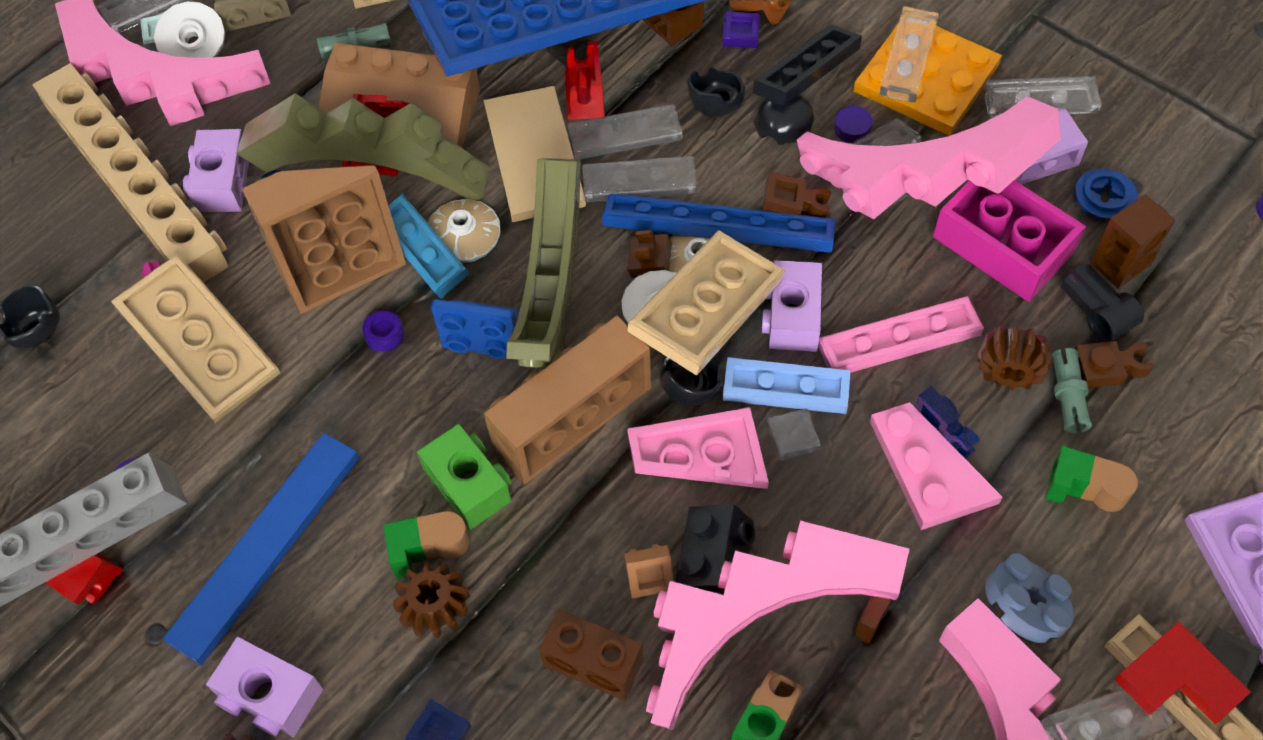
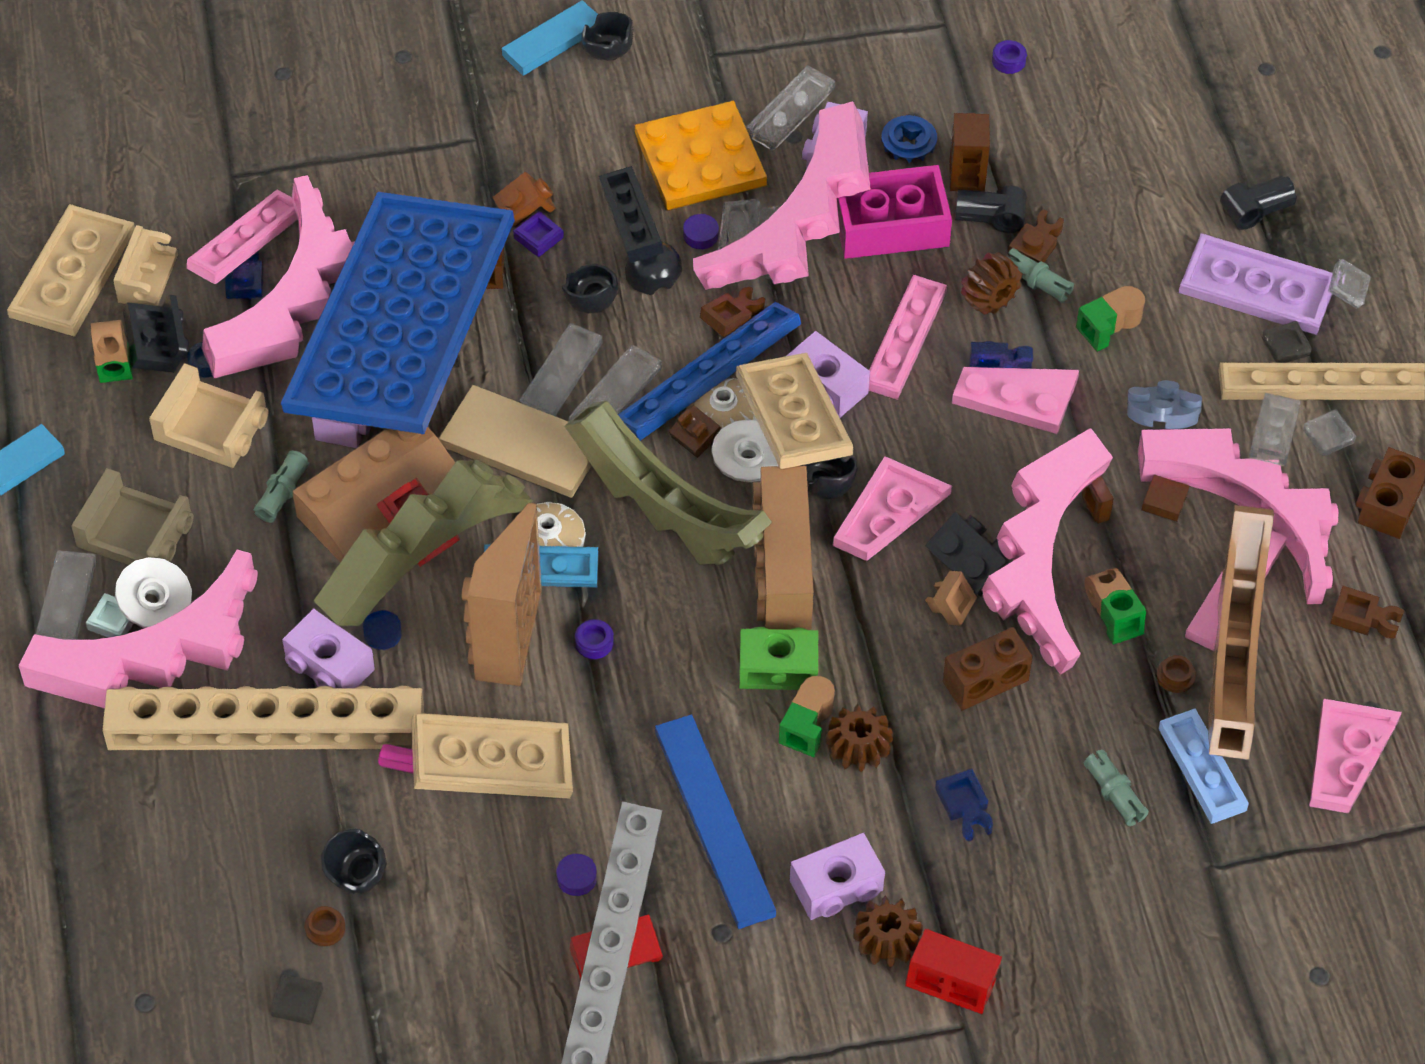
camera: 55 degrees left, 5 degrees down
(474, 326) = (661, 570): blue bracket -> none
(584, 84) = (497, 361): red hinge -> none
(786, 385) = (889, 422): light blue plate -> none
(793, 434) = (922, 450): clear tile -> none
(908, 54) = (683, 150): clear tile -> none
(936, 676) = (1165, 498): none -> reddish brown tile
(1184, 664) = (1273, 364): red tile -> none

